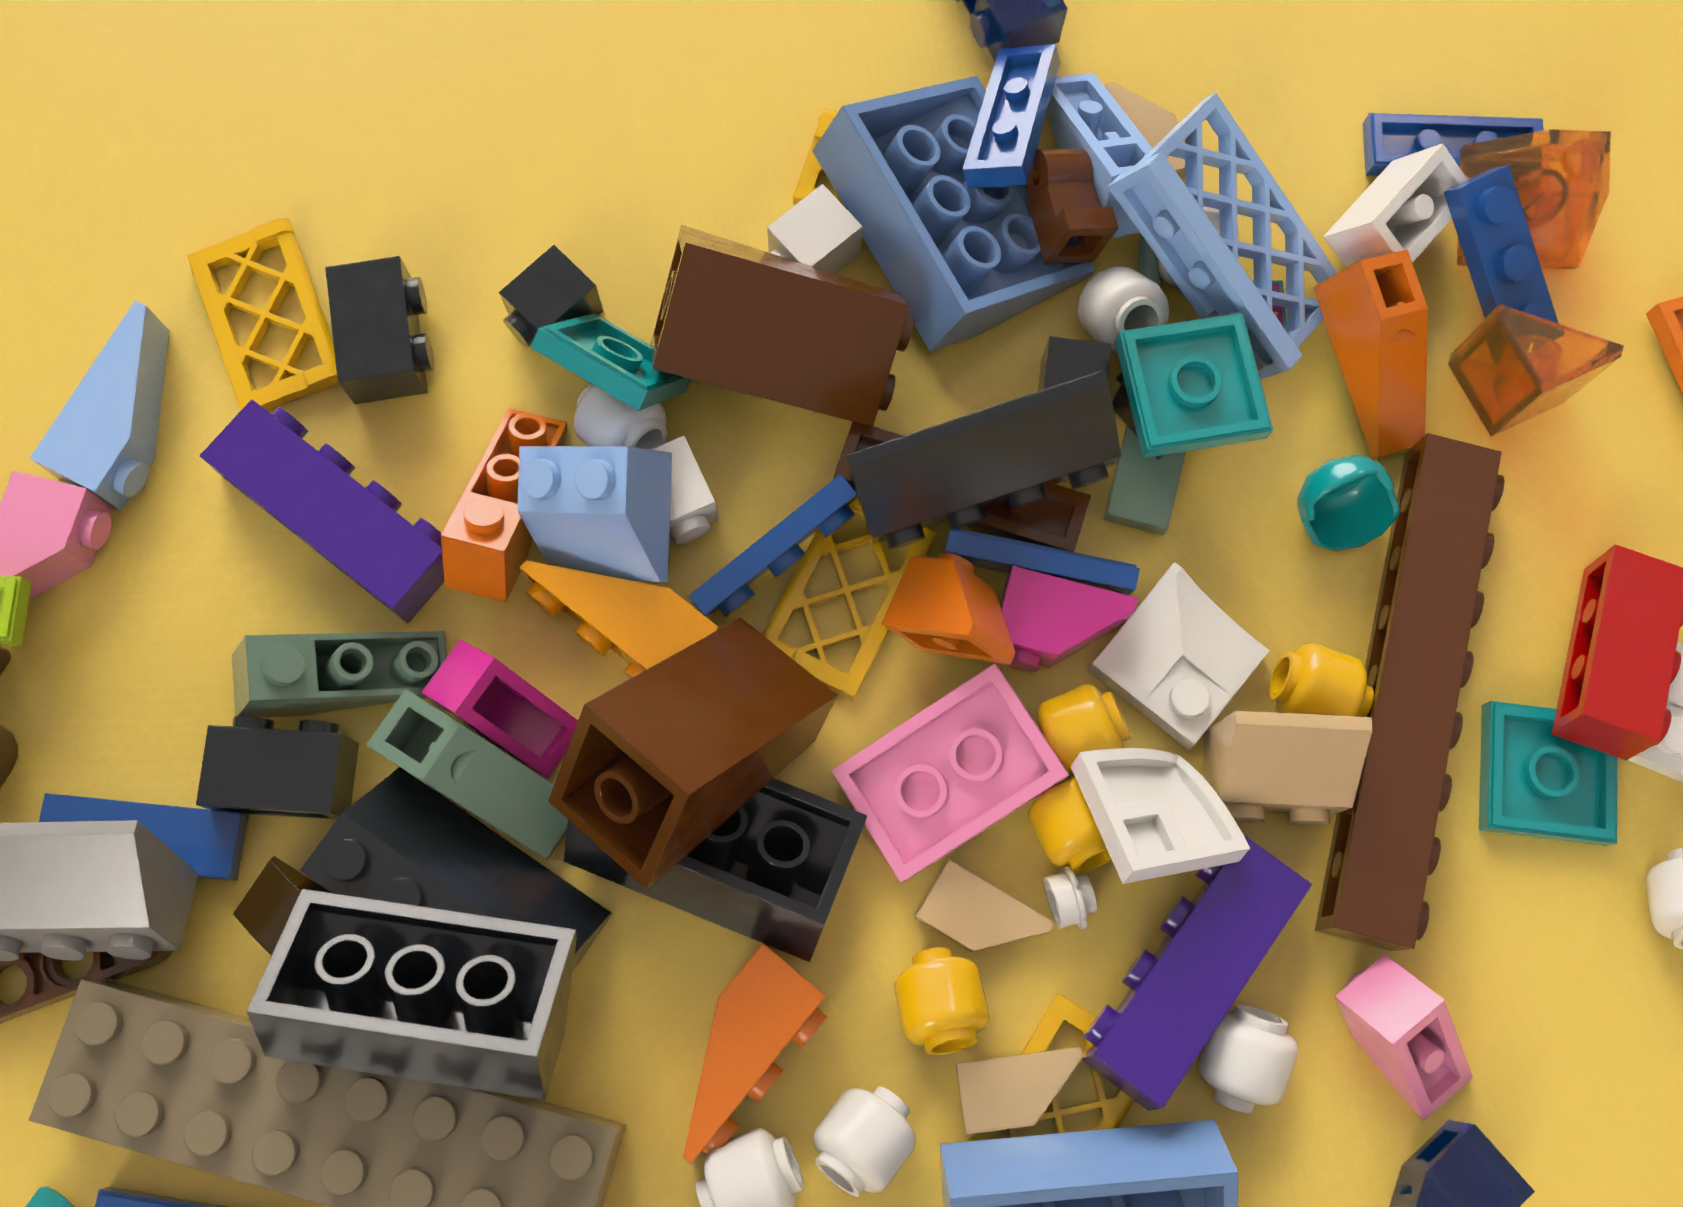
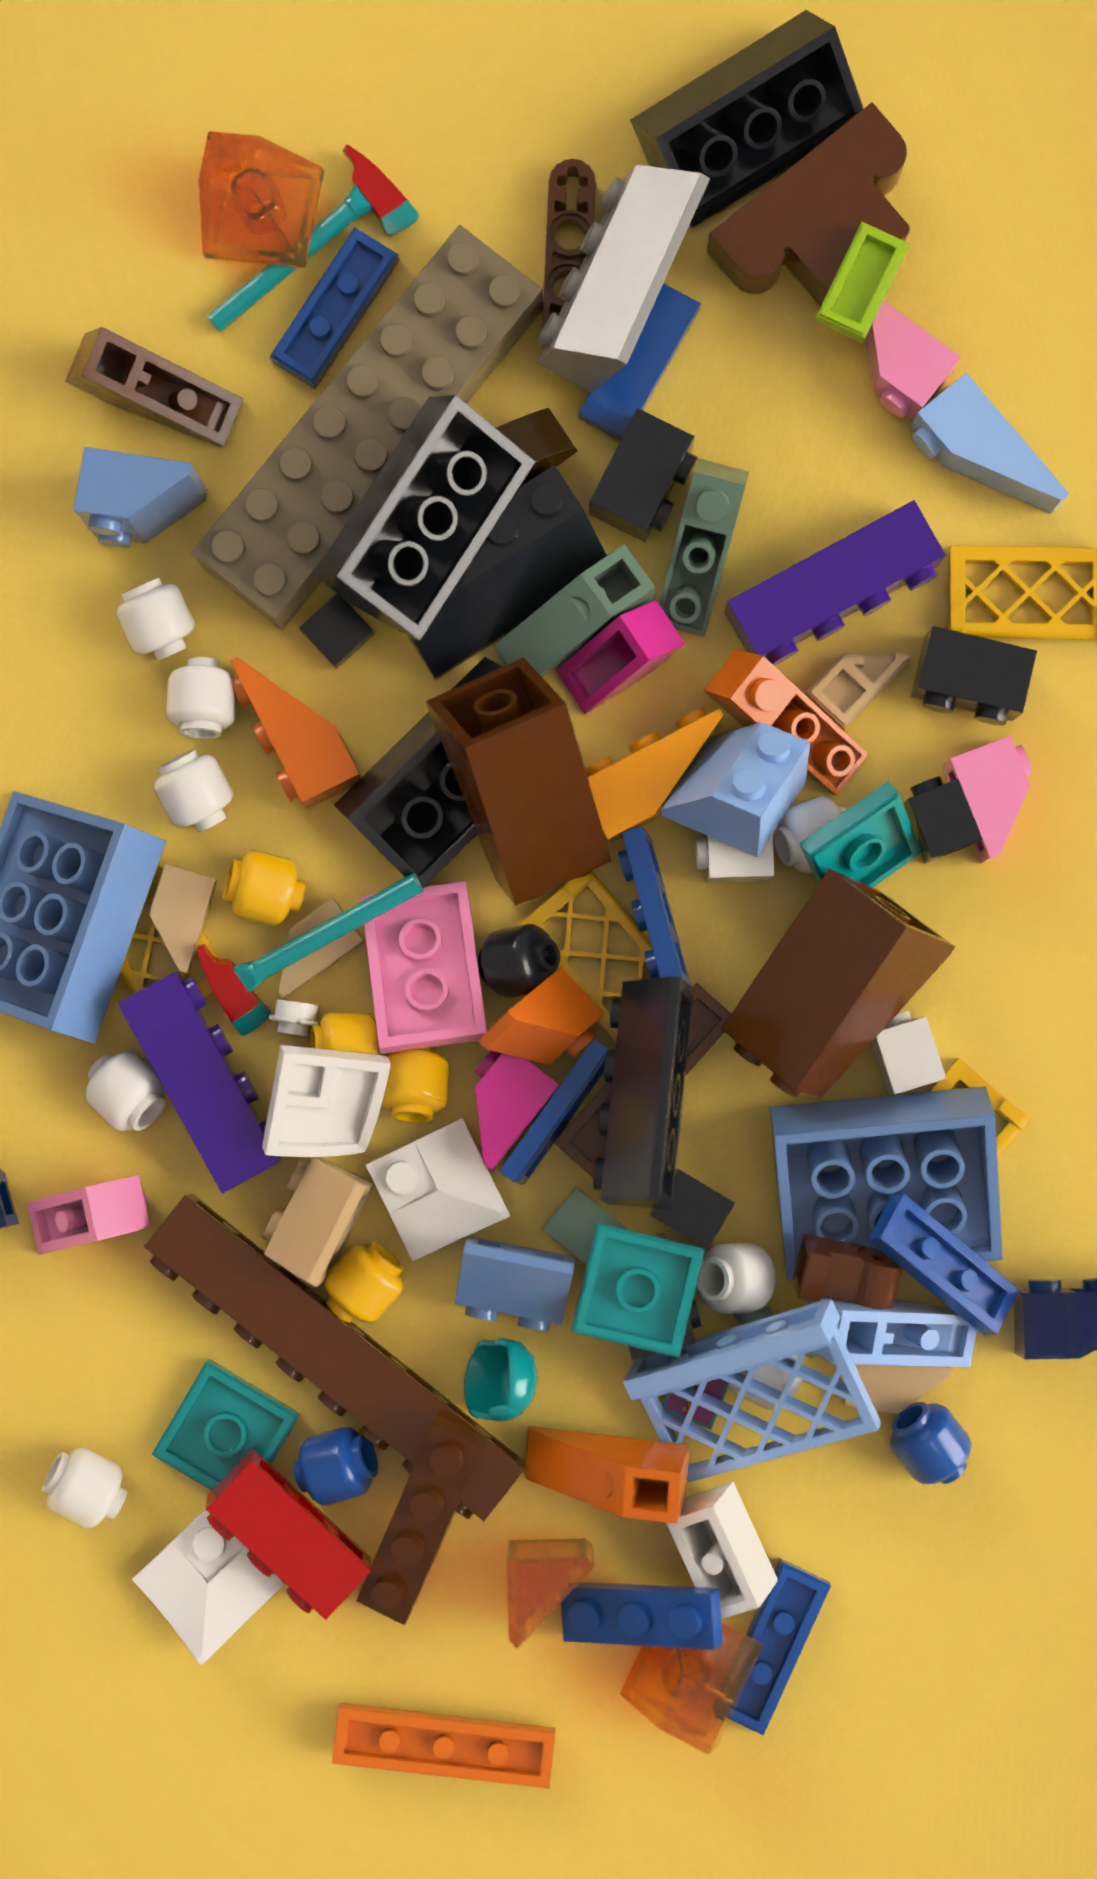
camera: 125 degrees right, 10 degrees up
(434, 451) = (853, 684): none -> tan tile
(490, 255) = (994, 787): none -> bright pink slope
(600, 1055) = (337, 630): none -> black tile
(894, 671) = (517, 959): none -> black head
(1066, 982) = (236, 983): none -> teal piece
(1188, 69) = (930, 1443): none -> blue head
(1236, 527) = (514, 1283): none -> medium blue slope
(1523, 635) = (335, 1466): none -> blue head
(1529, 514) = (422, 1519): none -> reddish brown plate

